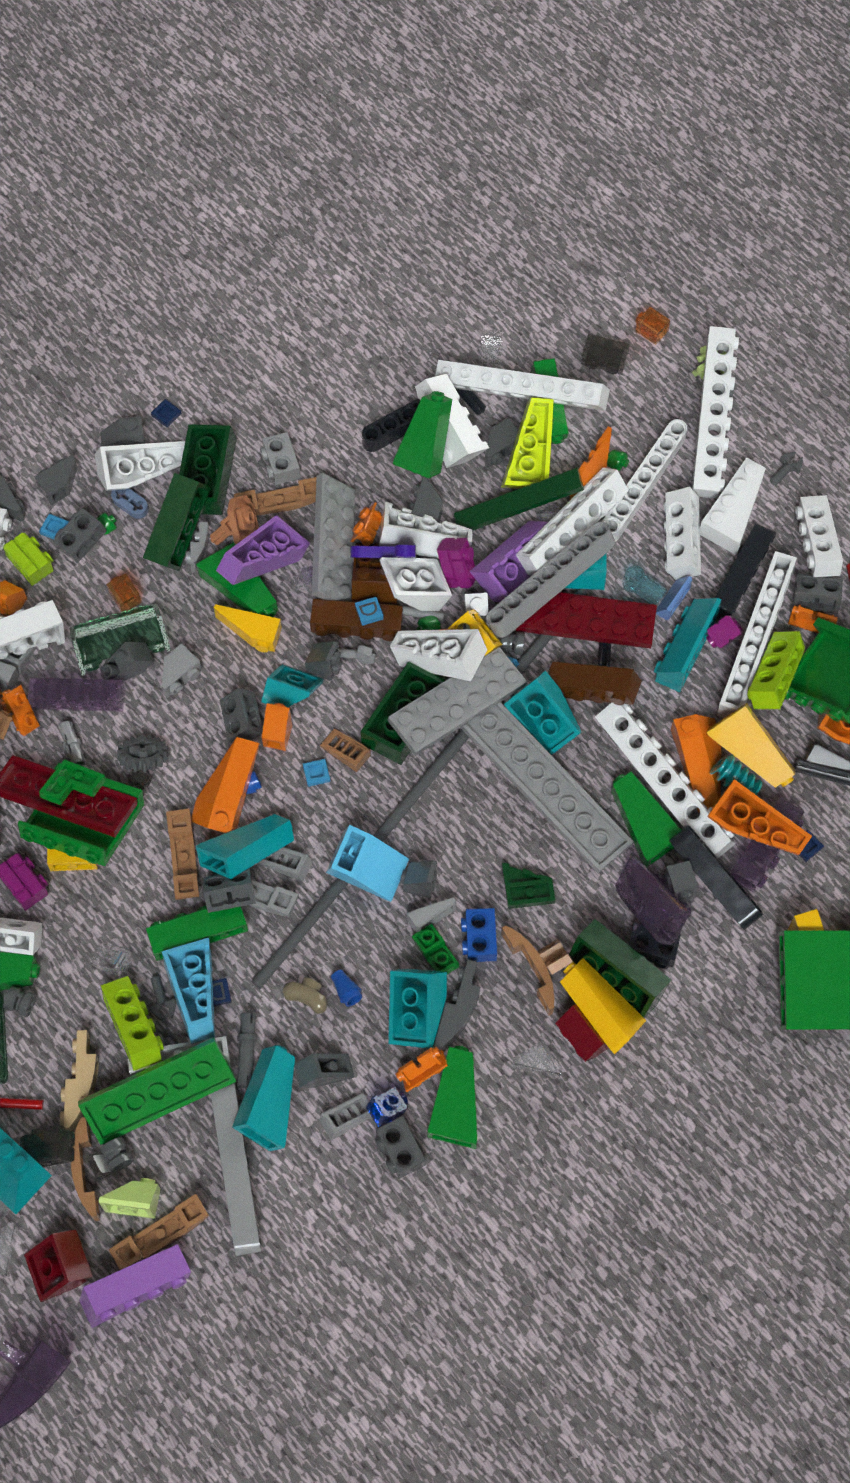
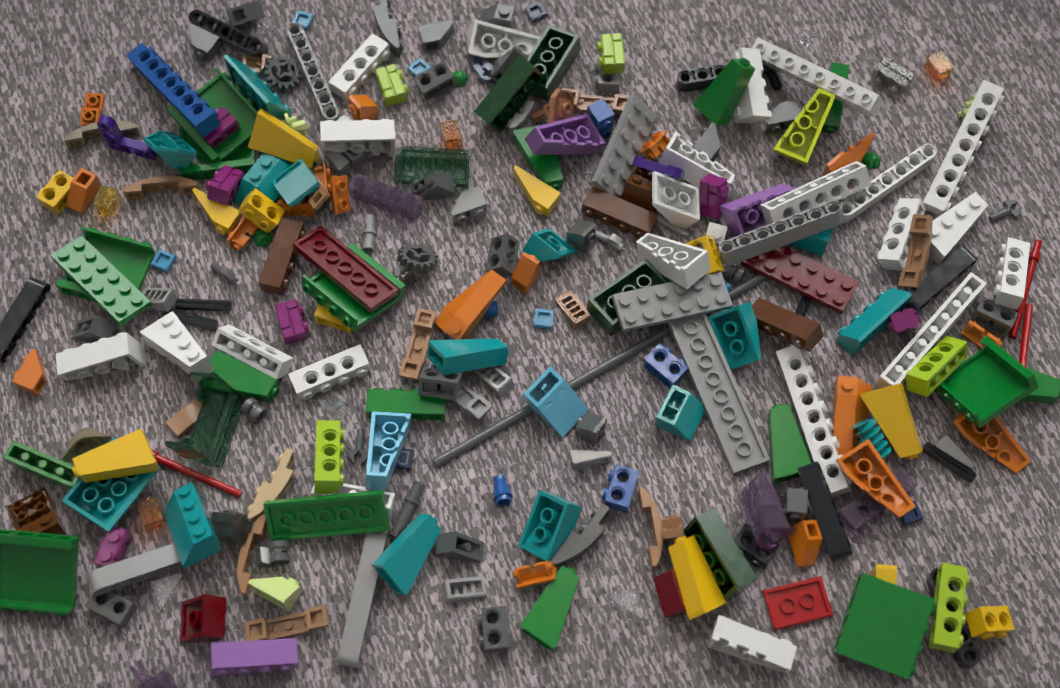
camera: 20 degrees right, 0 degrees up
(68, 778) = (354, 256): green plate -> none
(95, 911) = (335, 363): none -> white brick
(156, 488) = (504, 62): none -> dark grey slope
(277, 434) = (612, 53): none -> lime brick
(294, 513) = (602, 117): none -> blue brick
(306, 993) = (470, 483): dark tan piece -> none
(369, 611) = (630, 209): dark azure tile -> none
(387, 1106) = (492, 596): clear blue brick -> none
(428, 623) = (675, 235): green piece -> none
(434, 950) = (581, 487): green slope -> none
(474, 783) = (661, 369): none -> brick
(514, 826) = (680, 413): none -> teal slope
(520, 500) = (781, 165): dark green tile -> none
(526, 888) = (671, 465): dark green wing -> none
(644, 587) = (855, 264): clear light blue piece -> none
(674, 597) = (876, 281): medium blue slope -> none
(691, 1056) = (751, 645): none -> white wedge
(707, 920) = (806, 542): none -> orange slope
(709, 547) = (918, 251): none -> medium nougat slope
(723, 991) = (797, 603): none -> red tile
(836, 511) = (1034, 257): none -> red bar

